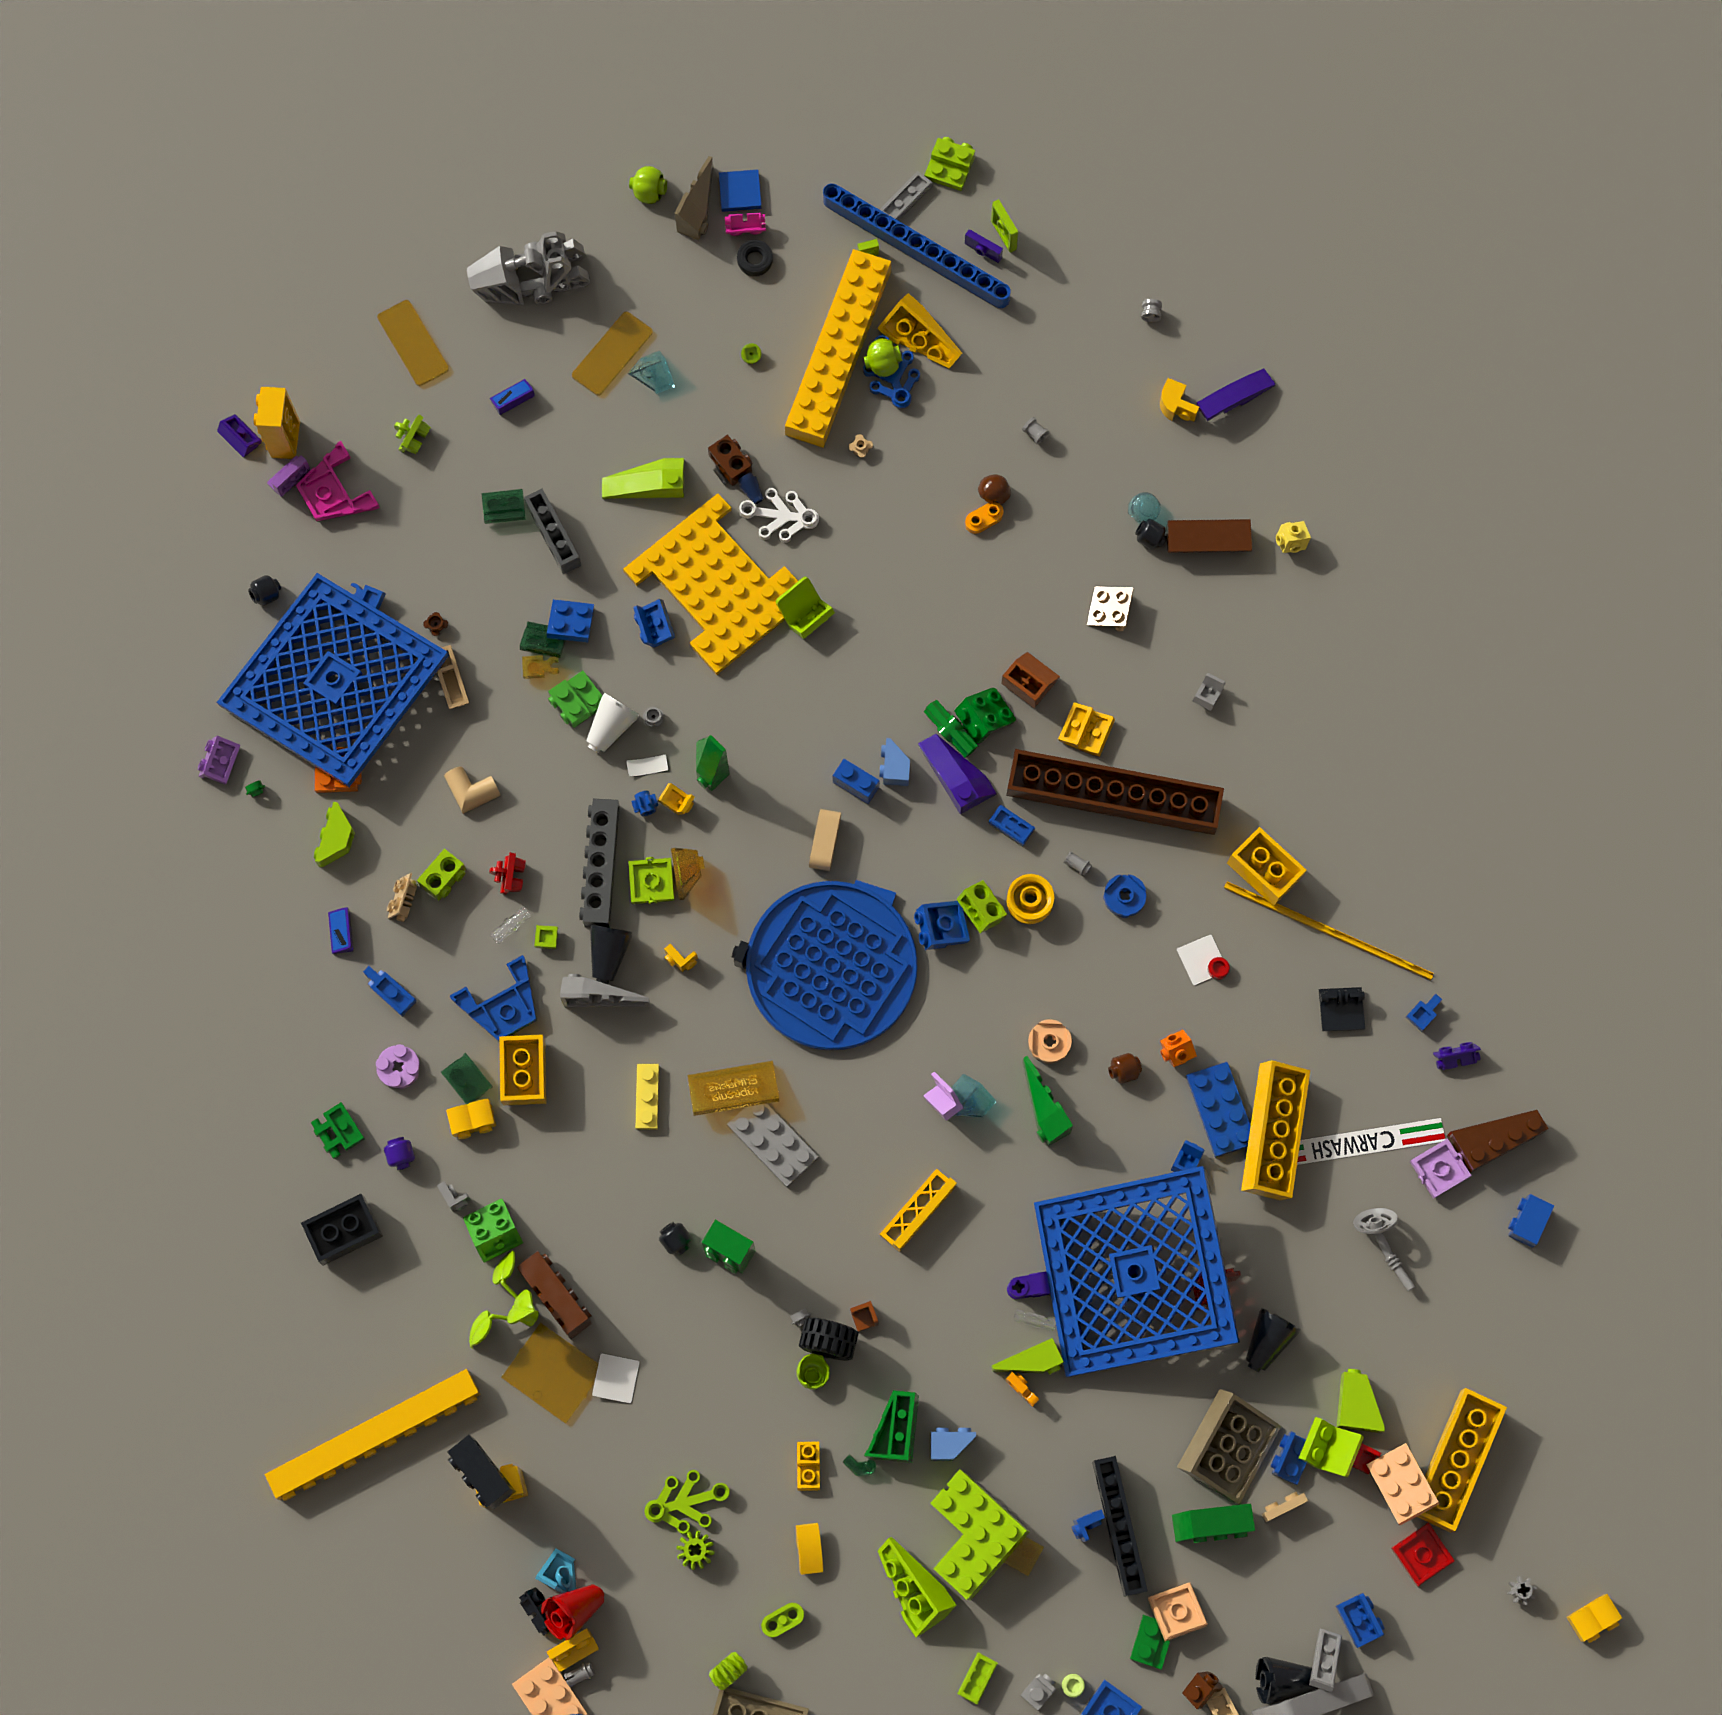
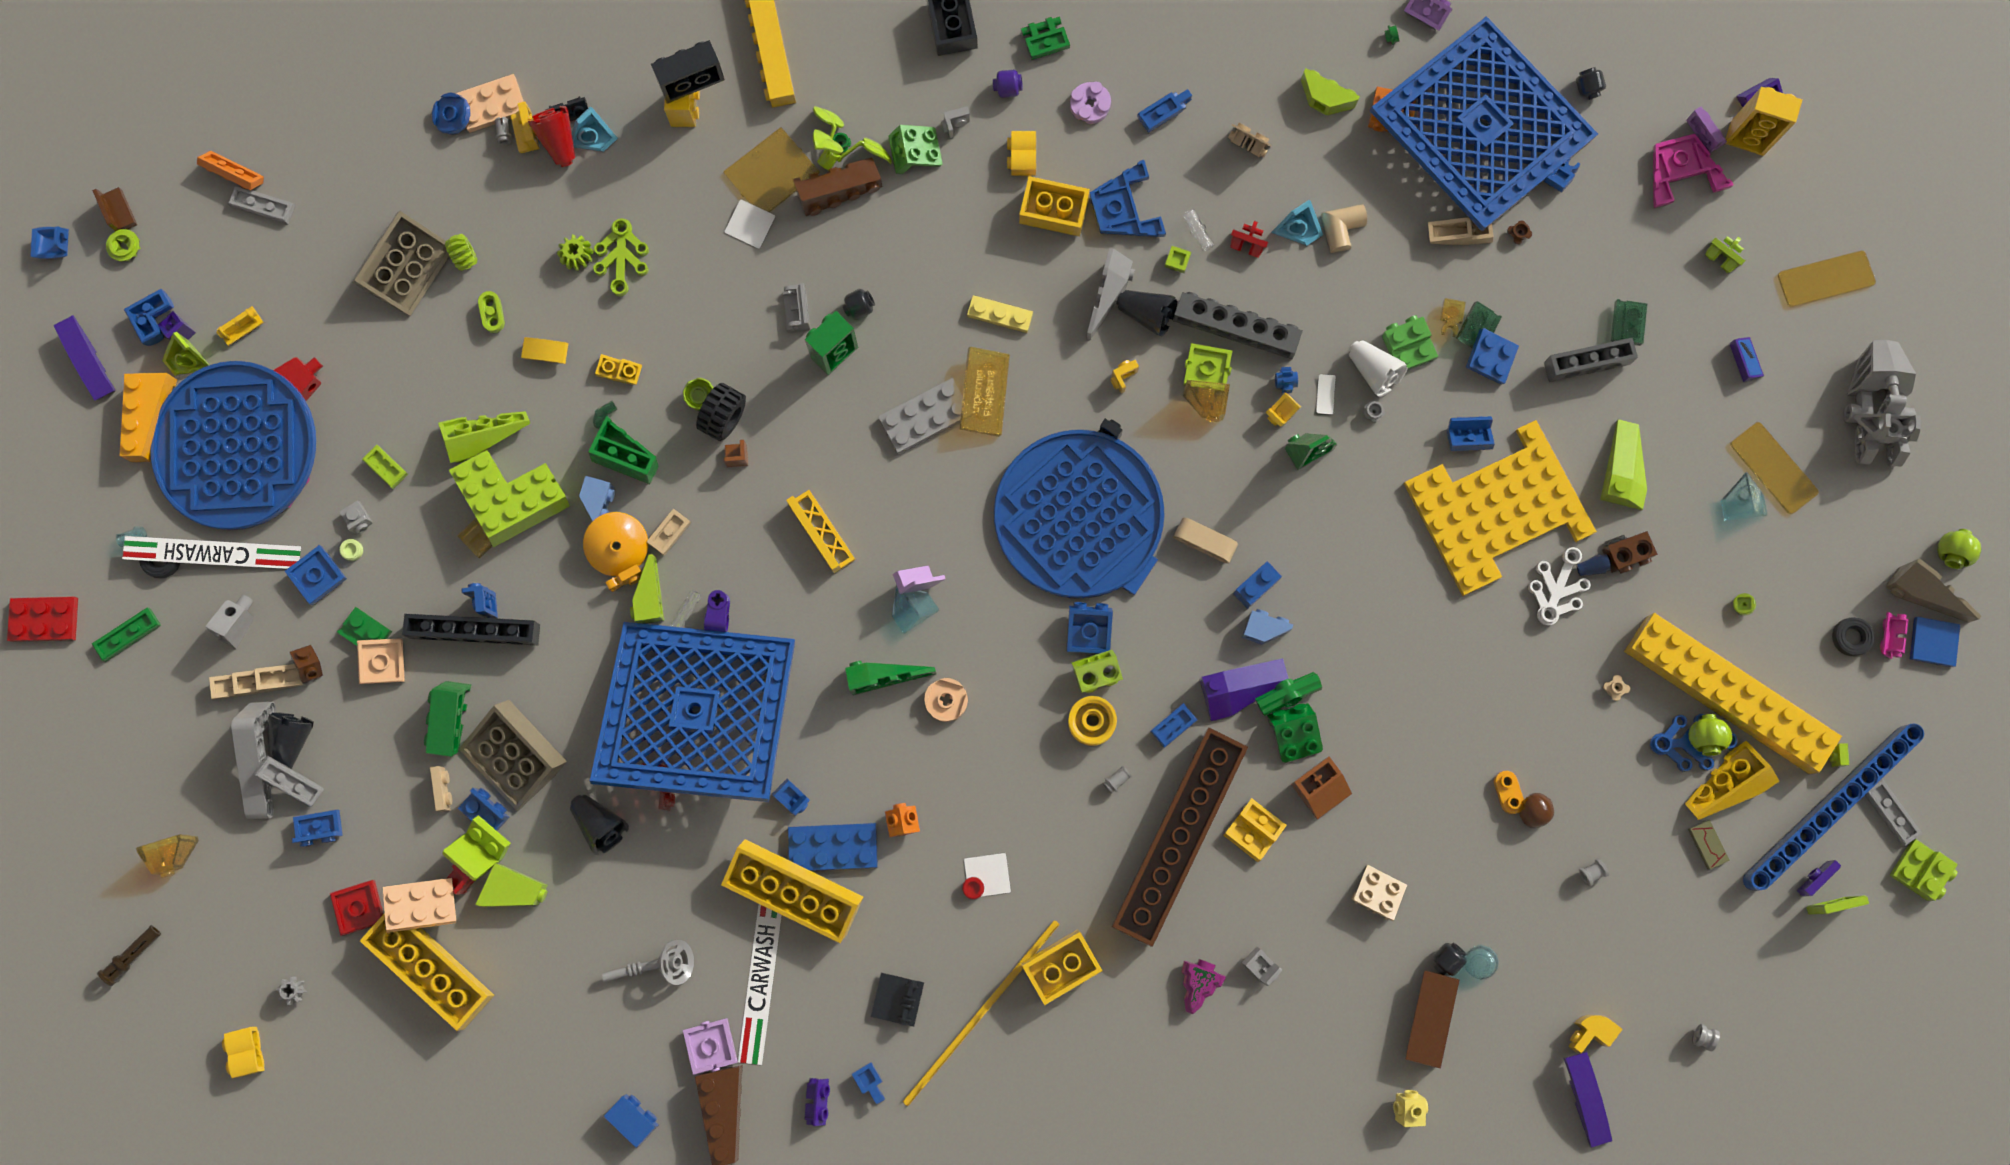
camera: 105 degrees right, 5 degrees up
(340, 931) = (1233, 81): slope -> none
(437, 871) = (1268, 177): lime brick -> none
(466, 1079) = (1060, 158): clear green plate -> none
(481, 828) = (1300, 225): none -> medium azure slope
(497, 1309) = (841, 137): none -> green plate
(695, 1301) = (796, 308): none -> light grey hinge
(799, 1317) = (753, 397): light grey plate -> none
(803, 608) = (1451, 581): lime bracket -> none
(962, 1360) = (668, 532): none -> tan plate
(980, 341) = (1708, 844): none -> olive tile
(986, 1419) = (609, 529): none -> light orange dish
(1125, 883) = (1076, 805): blue plate -> none
(1125, 1068) = (898, 764): reddish brown head -> none
(1240, 743) = (1200, 982): none -> magenta rock

